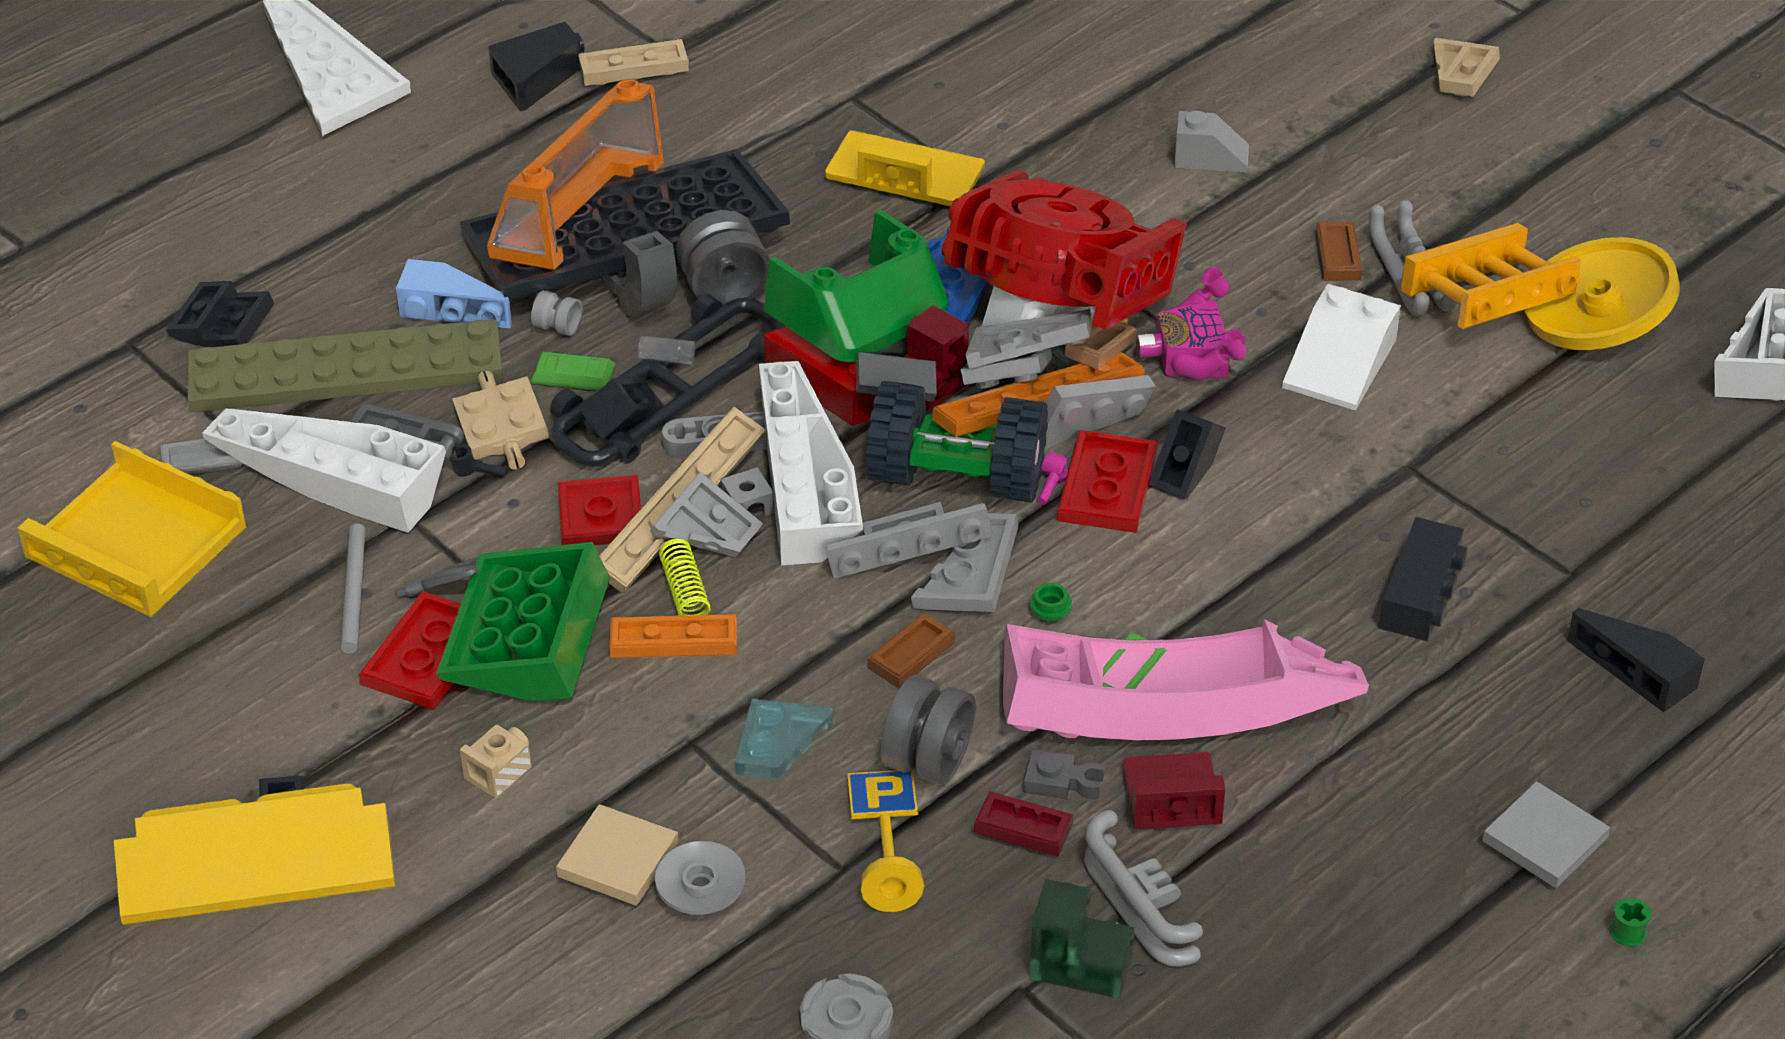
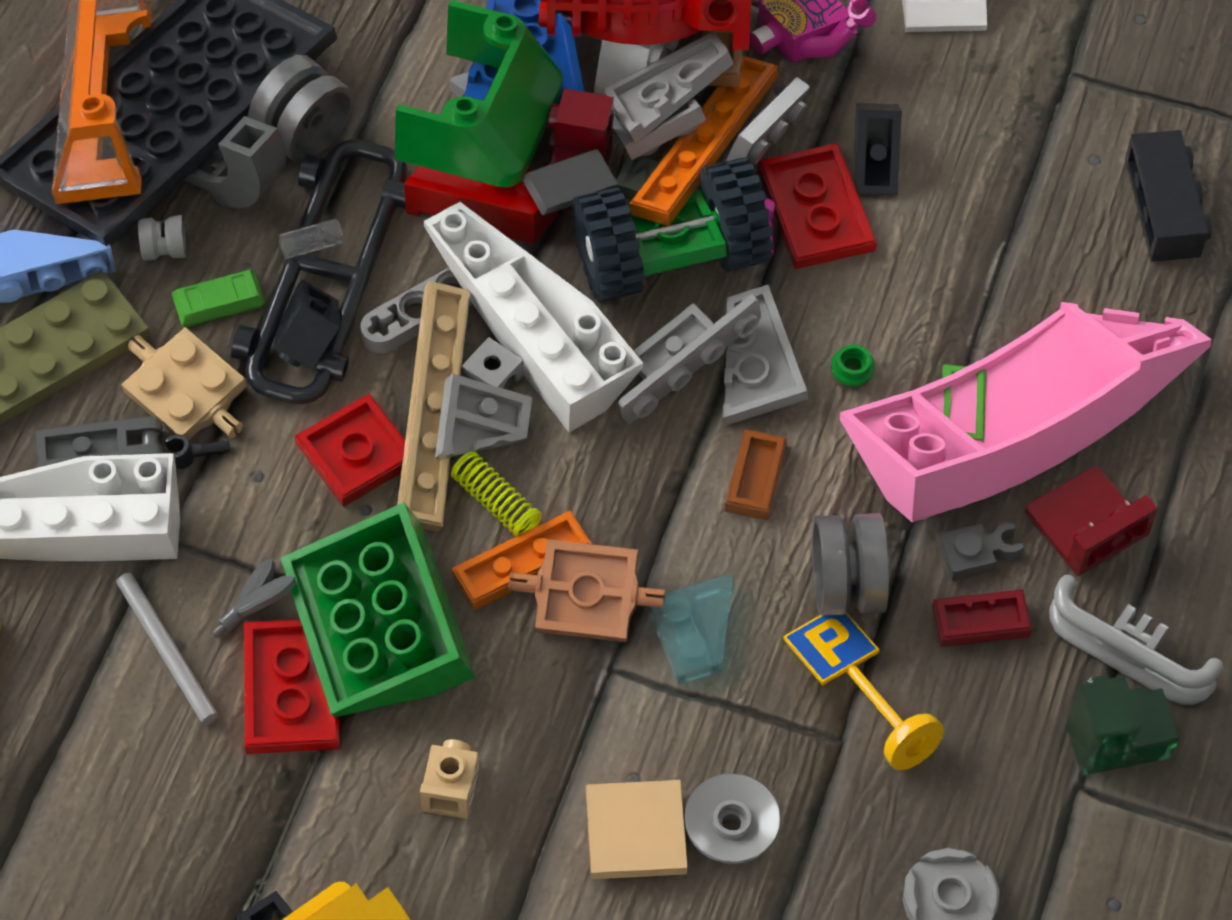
camera: 30 degrees left, 15 degrees up
(703, 671) = (586, 590): none -> nougat plate

